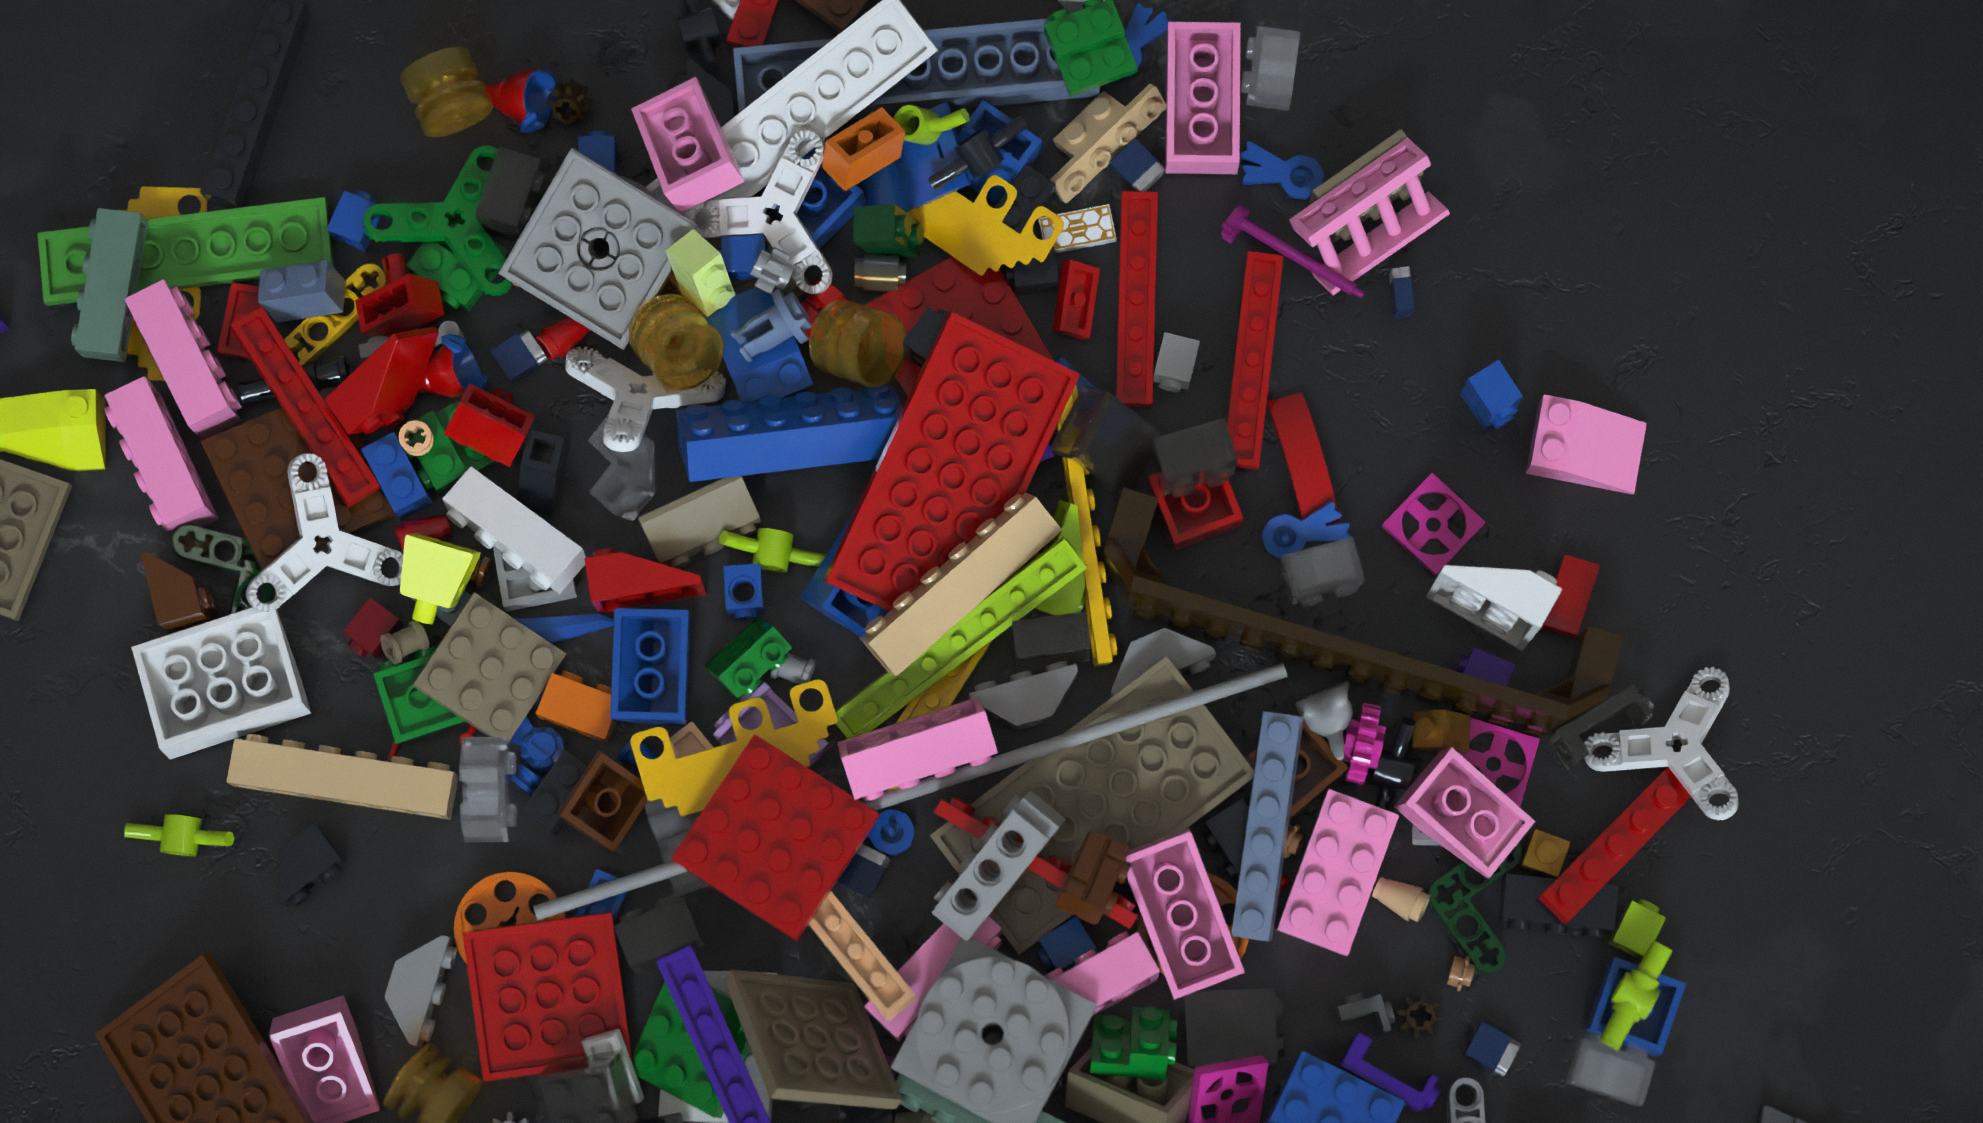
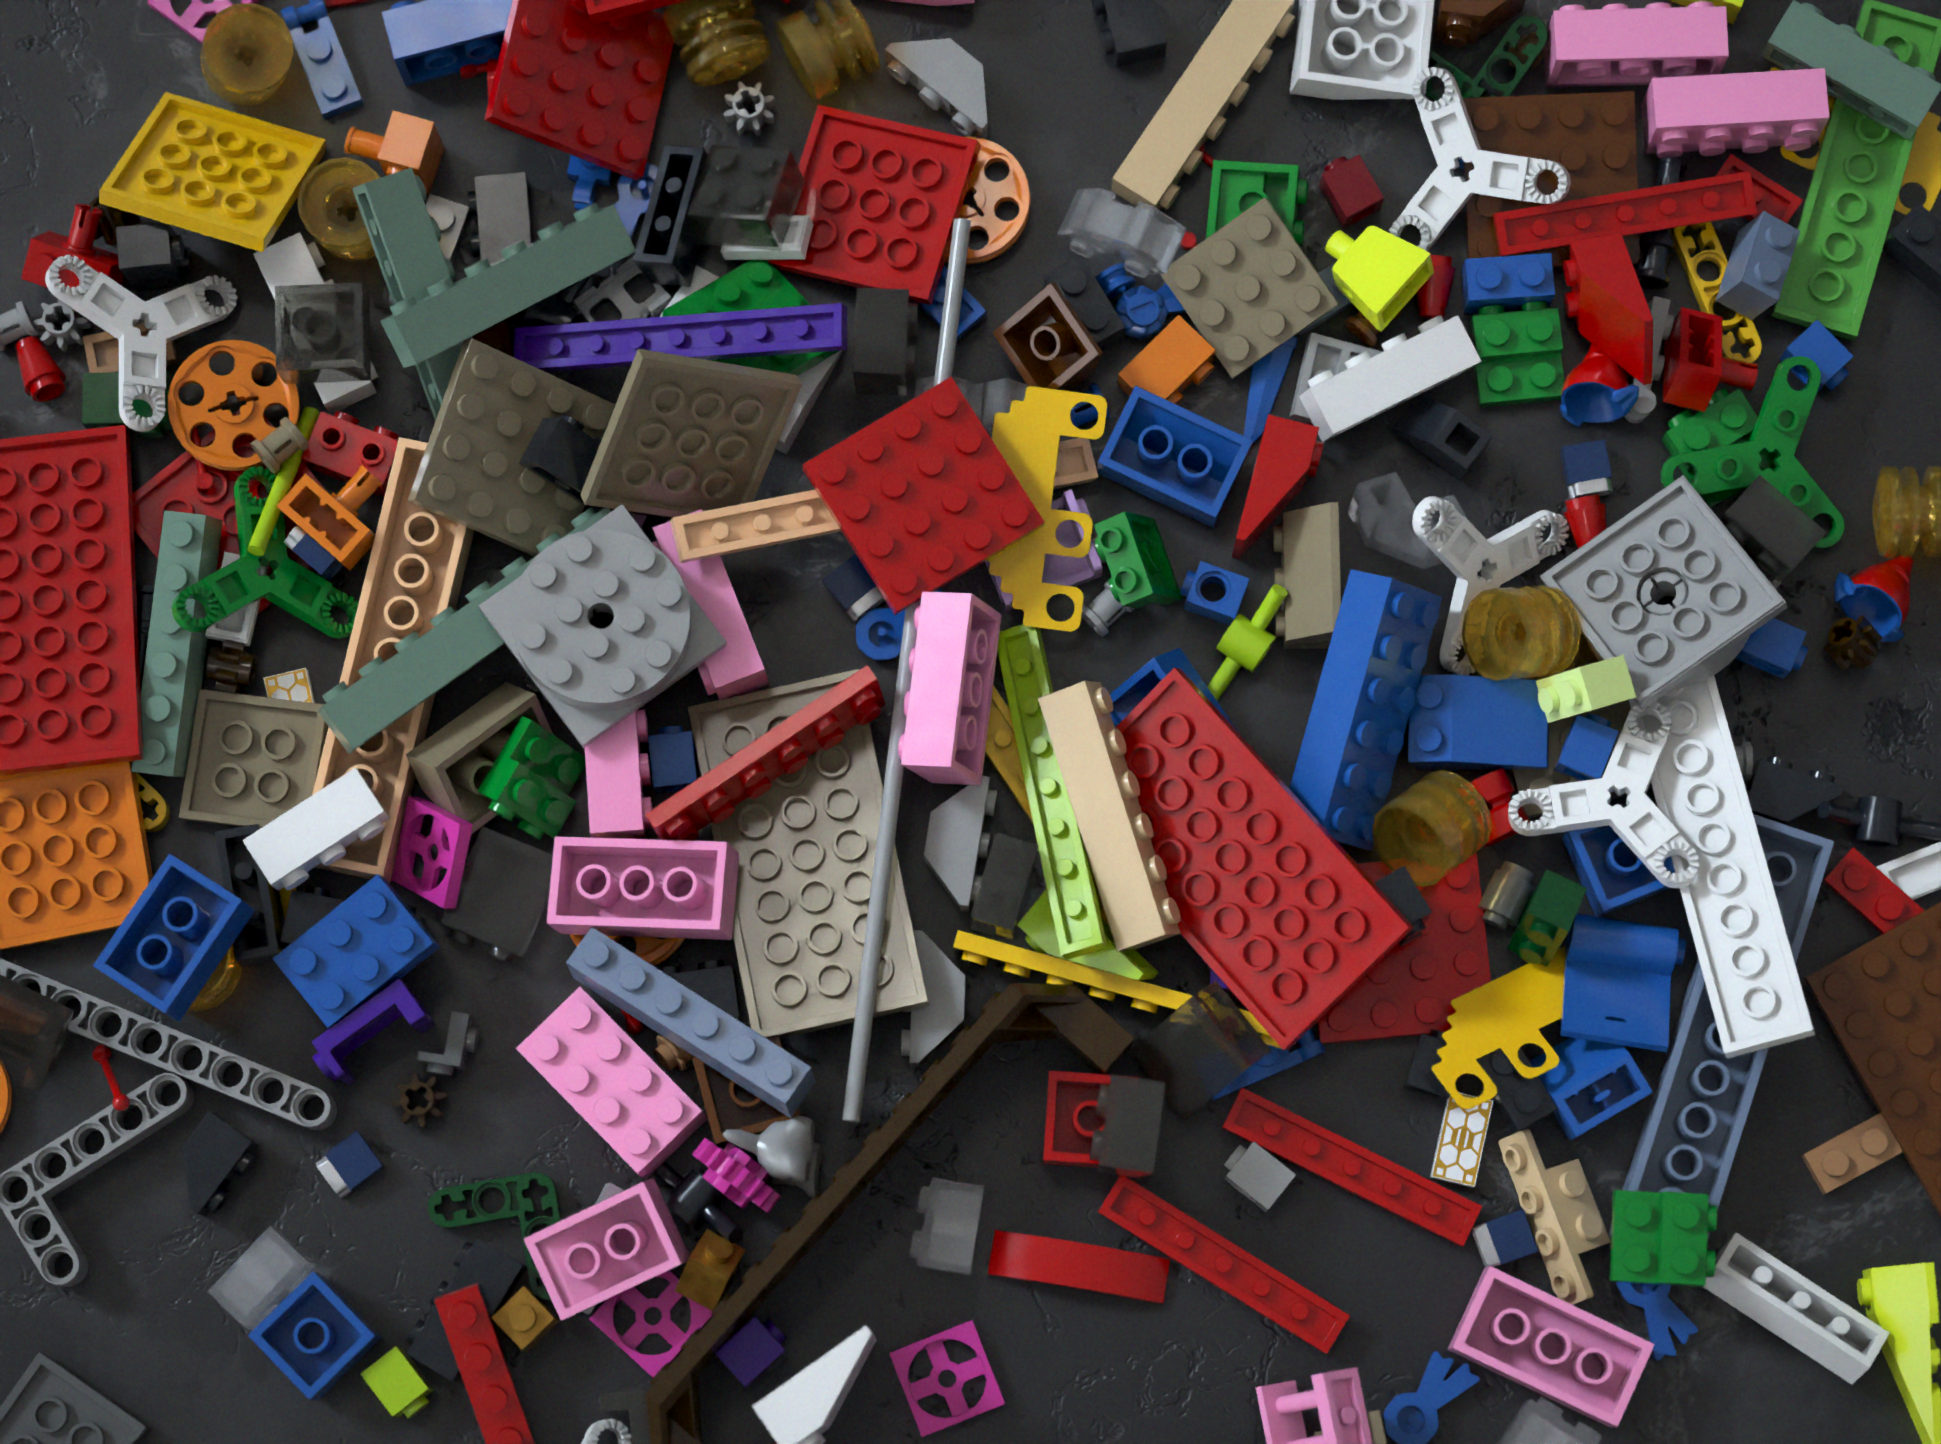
camera: 115 degrees right, 0 degrees up
(404, 642) = (1318, 212): dark tan bush -> none
(412, 427) = (1523, 312): light nougat bush -> none
(489, 424) = (1519, 398): red brick -> none
(687, 145) = (1737, 734): bright pink slope -> none
(772, 270) = (1552, 764): light grey gear -> none
(785, 316) = (1488, 757): sand blue piece -> none
(863, 149) = (1649, 927): orange brick -> none
(929, 123) = (1655, 1005): lime piece -> none
(978, 153) = (1590, 1056): black piece -> none
(1036, 824) = (775, 702): light grey brick -> none
(1076, 299) = (1379, 1098): red plate -> none
(1093, 877) = (714, 796): reddish brown brick -> none
(1240, 220) = (1390, 1325): magenta piece -> none
(1289, 534) = (1007, 1208): blue piece -> none
(1402, 898) = (552, 1144): tan cone -> none
(1460, 972) = (444, 1168): medium nougat plate -> none
(1635, 995) = (320, 1333): lime pin -> none

